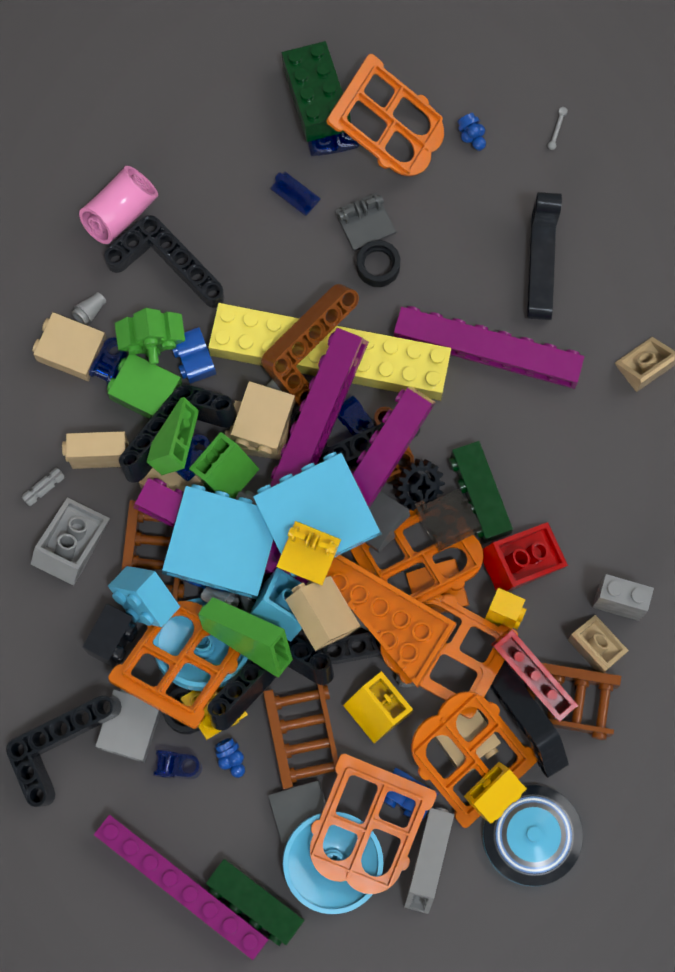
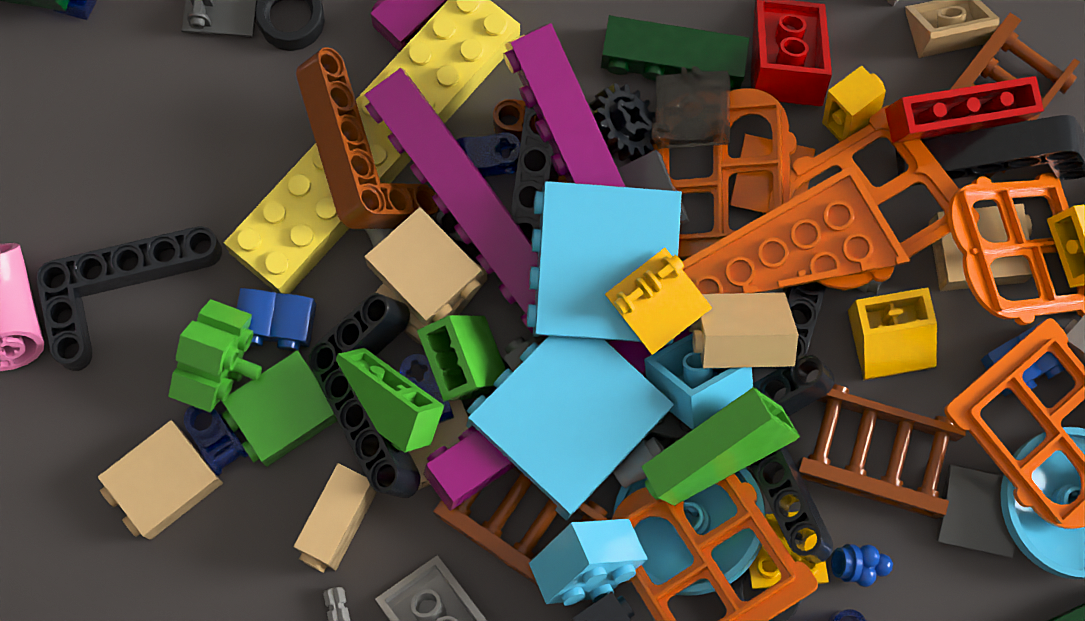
camera: 65 degrees left, 0 degrees up
(88, 309) = (120, 426): light grey cone -> none
(295, 193) = (126, 67): clear blue hinge -> none

